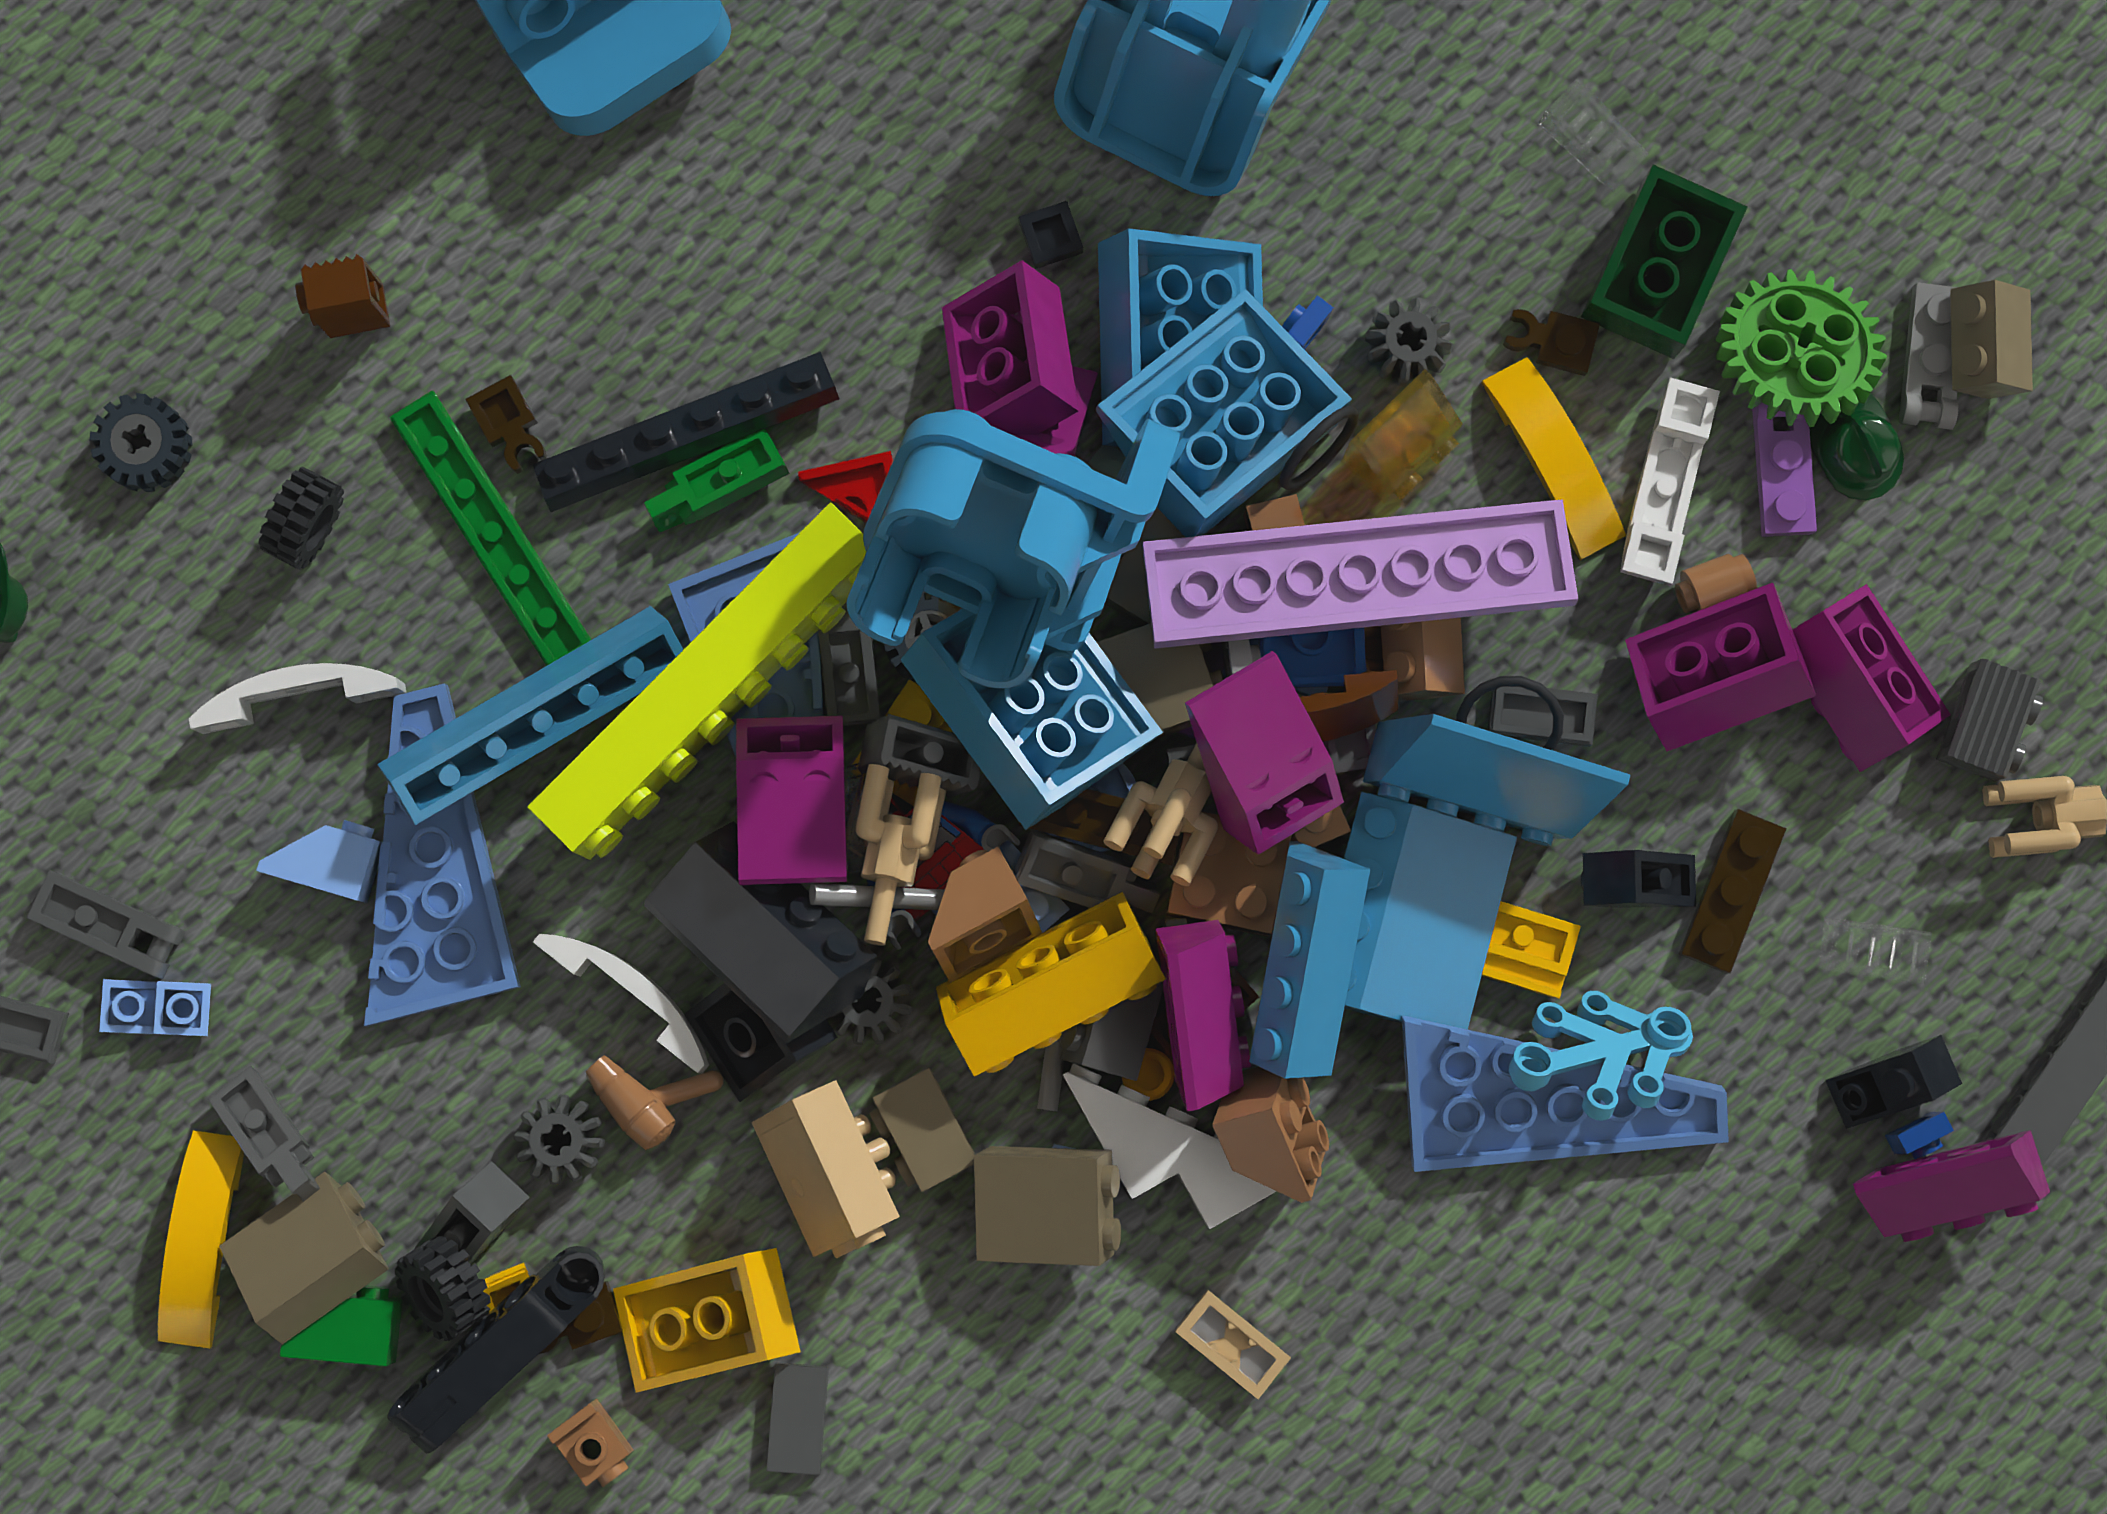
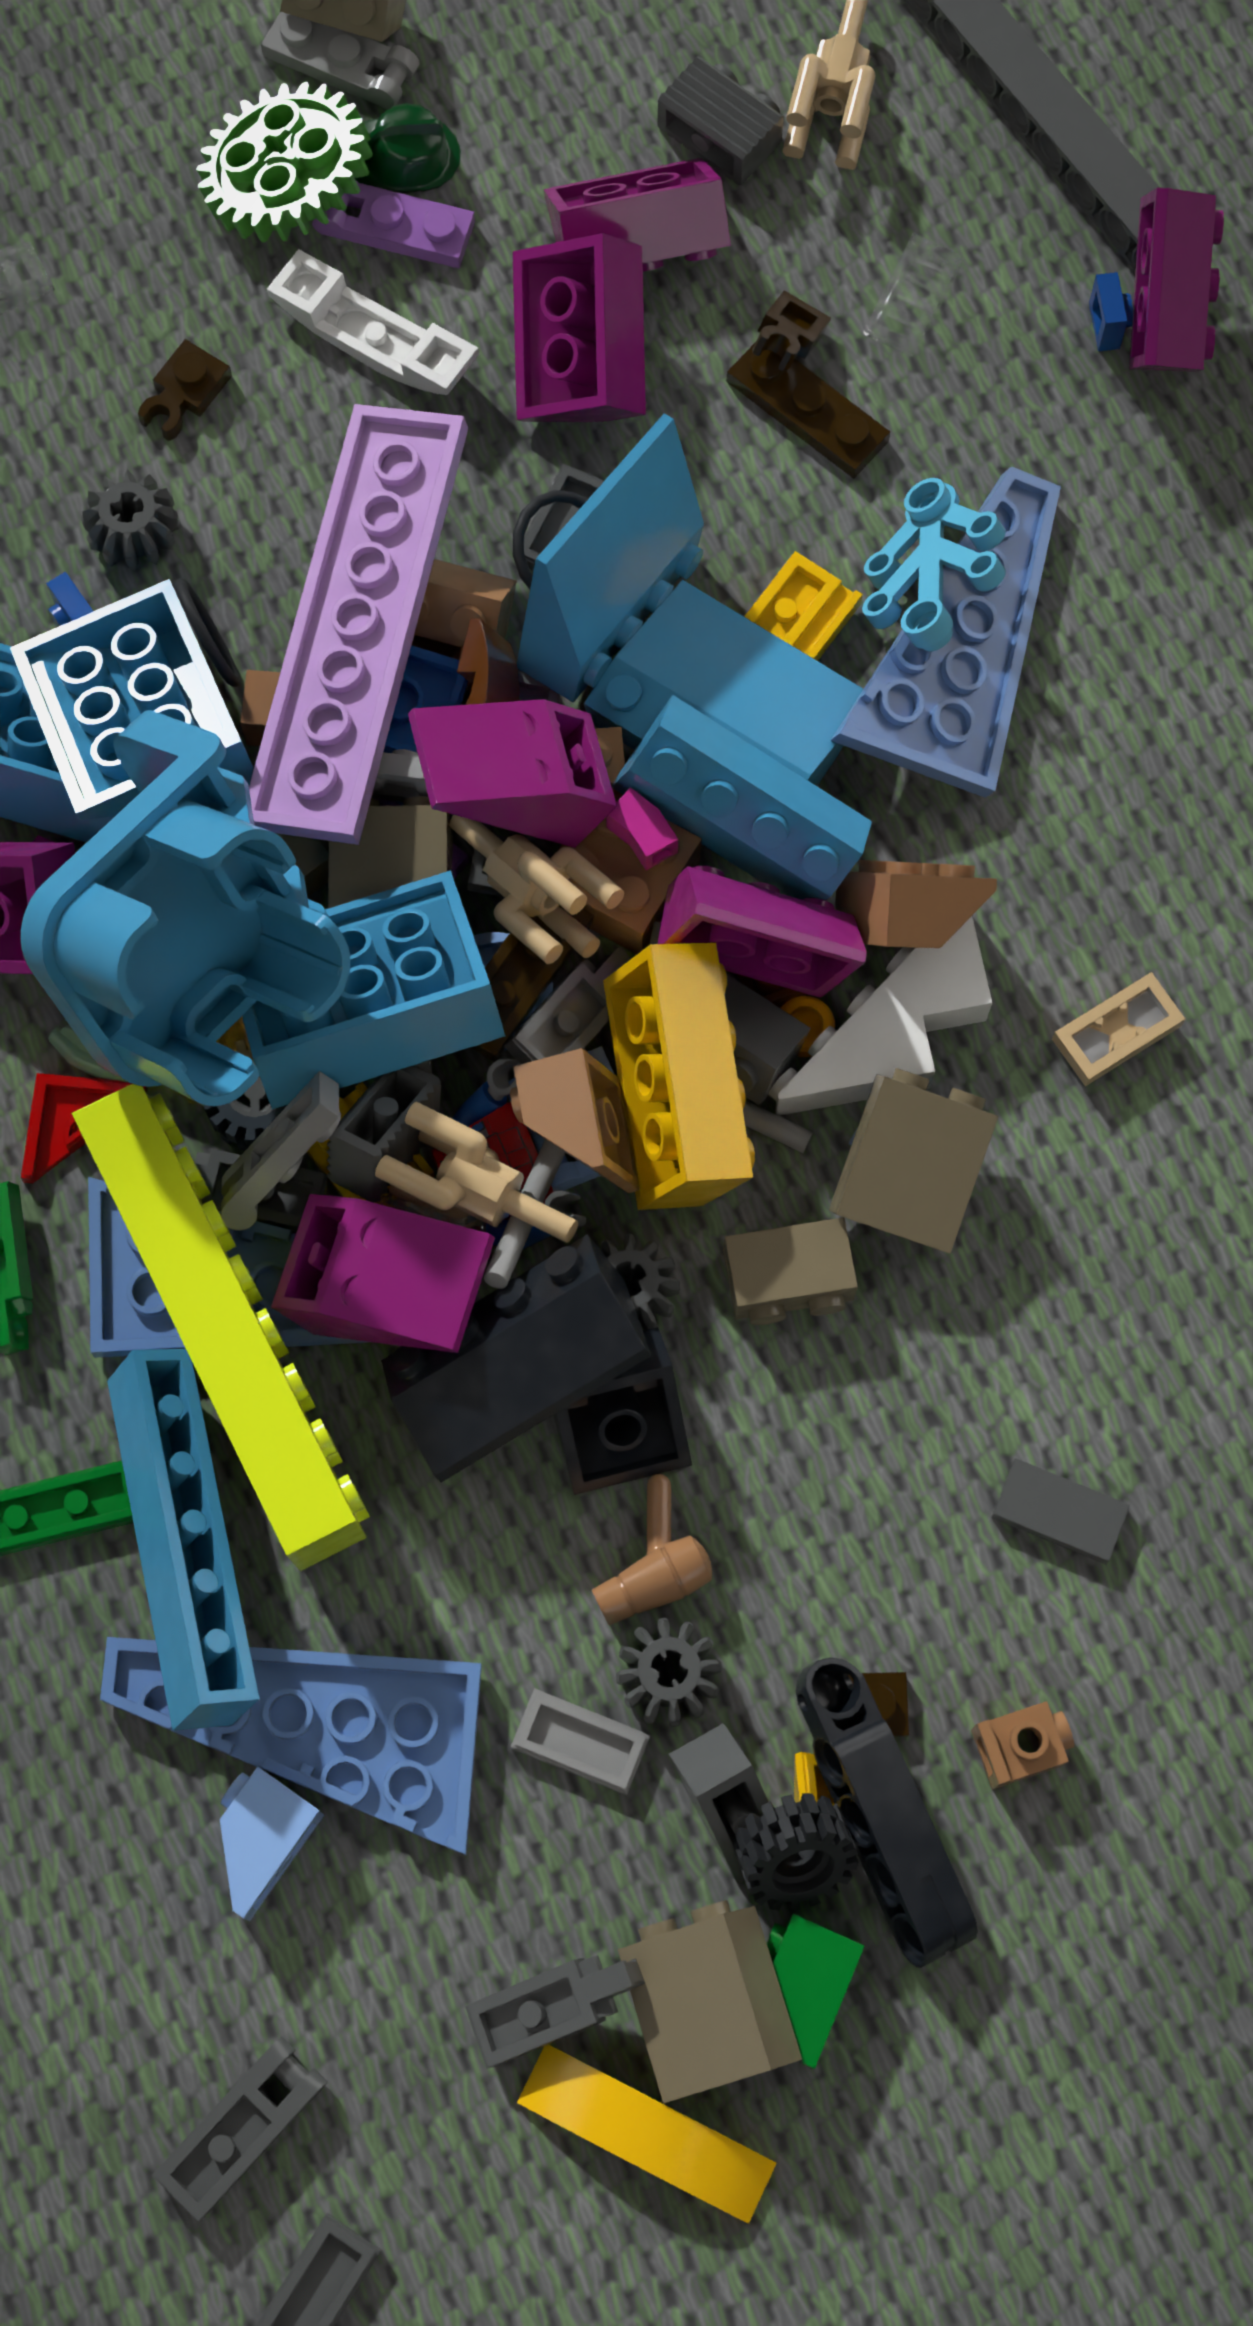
camera: 70 degrees left, 10 degrees down
(155, 1007) = (358, 2102): light blue slope -> none
(233, 706) = (70, 1732): white slope -> none
(485, 1086) = (580, 1741): none -> light grey tile
(677, 1036) = (599, 1501): white slope -> none
(706, 1319) = (923, 1574): yellow slope -> none
(829, 1170) = (802, 1378): tan piece -> none
(868, 678) = (279, 1150): none -> light grey plate
(1254, 882) = (643, 829): none -> dark pink piece
(1404, 439) = (231, 552): clear yellow slope -> none
(1556, 455) = (285, 421): yellow slope -> none
(1638, 879) = (765, 485): black slope -> none
(1664, 262) = (147, 253): dark green brick -> none
(1714, 582) = (491, 316): medium nougat brick -> none
(1796, 852) = (790, 329): none -> dark brown plate
(1894, 1082) = (1050, 318): black slope -> none

